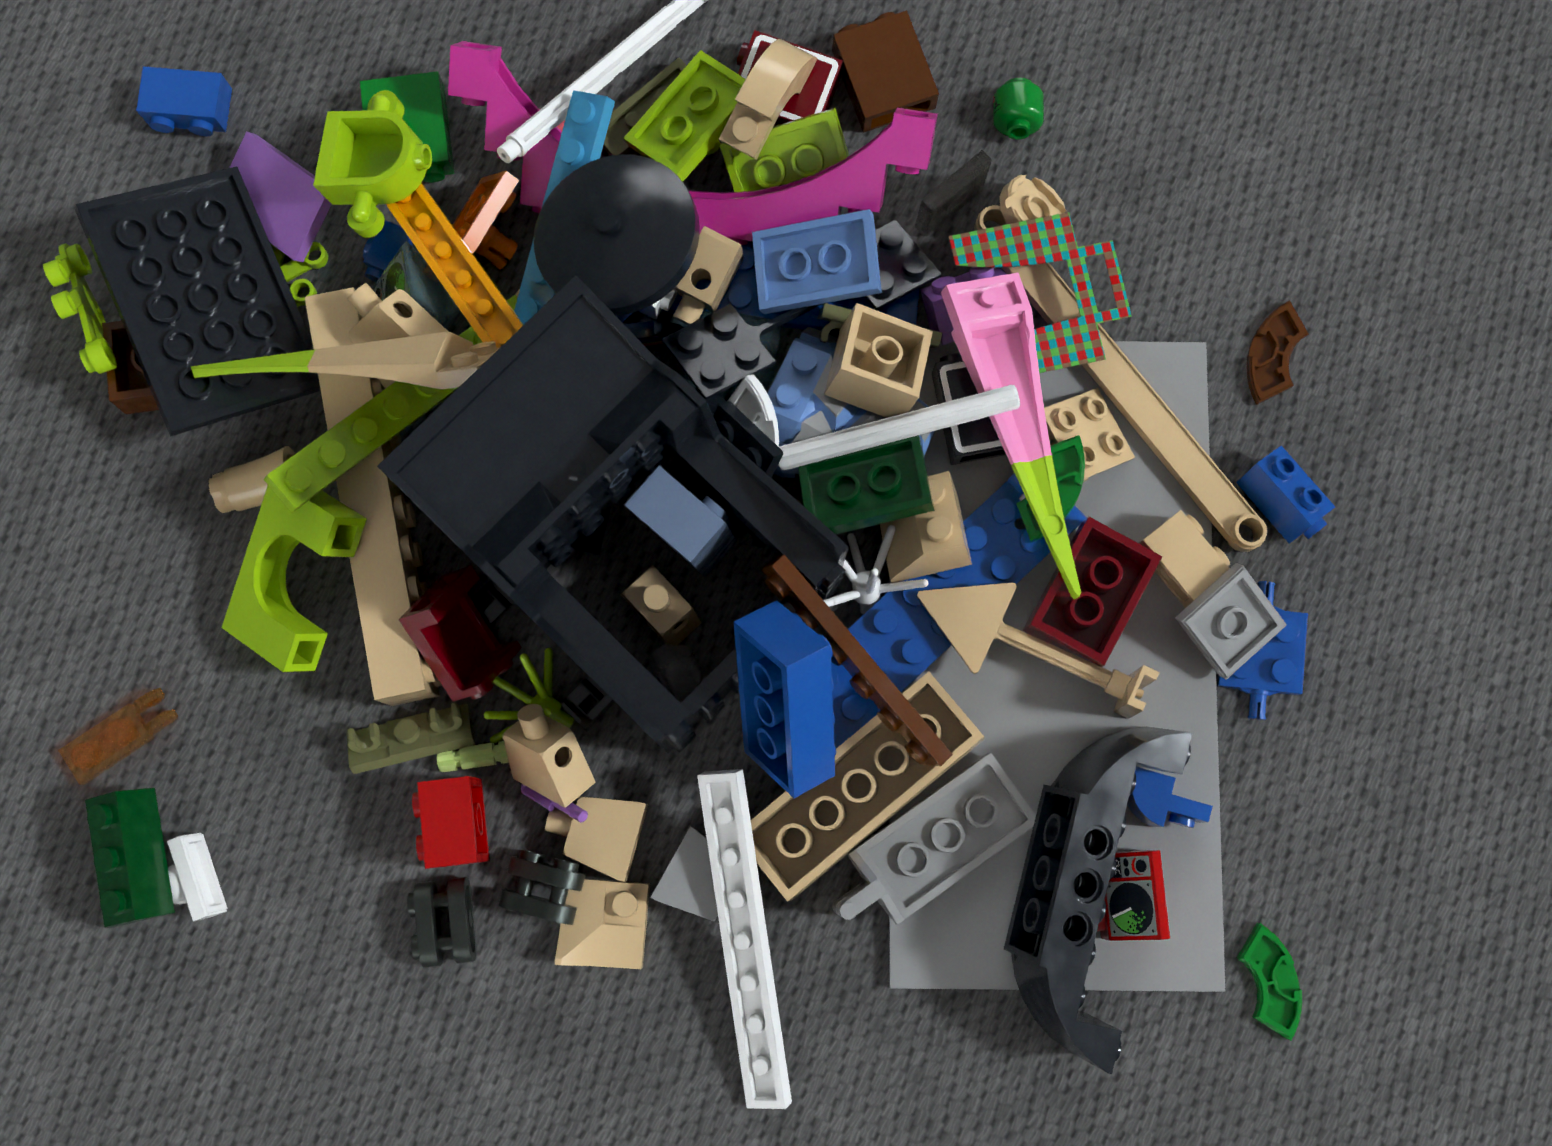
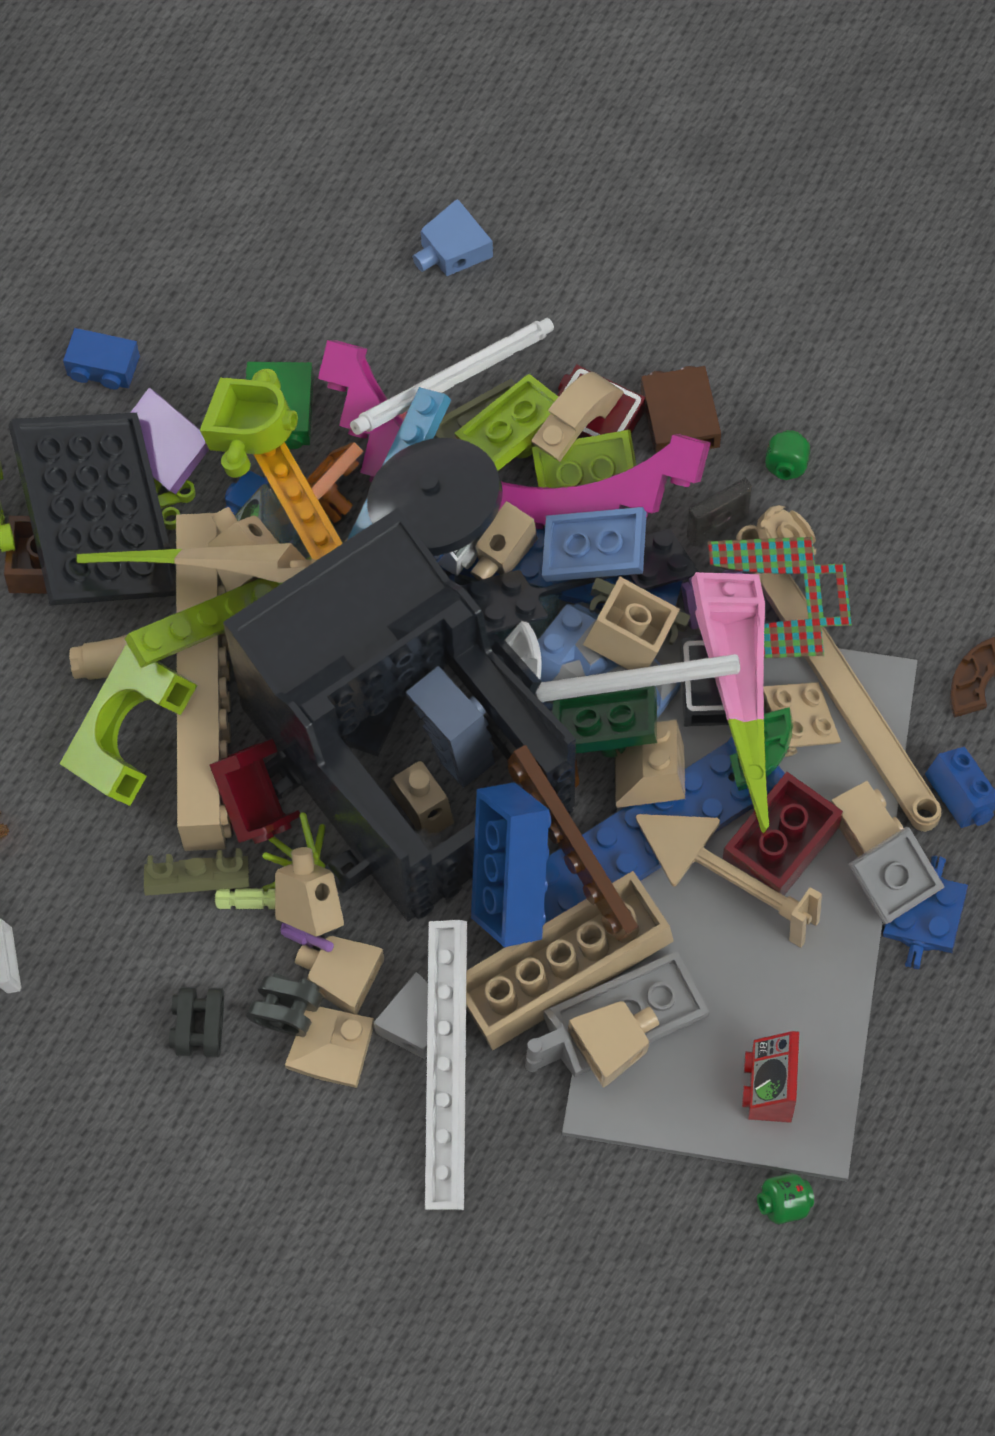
camera: 15 degrees right, 15 degrees down
(451, 822) = (221, 939): red brick -> none
(867, 584) = (596, 805): white plant -> none
(937, 882) = (612, 1038): none -> tan torso
(1068, 880) = (718, 1063): black slope -> none
(1154, 800) = (808, 1009): blue brick -> none
(1159, 1029) = (785, 1198): none -> green head
(1275, 979) = (894, 1179): green tile -> none

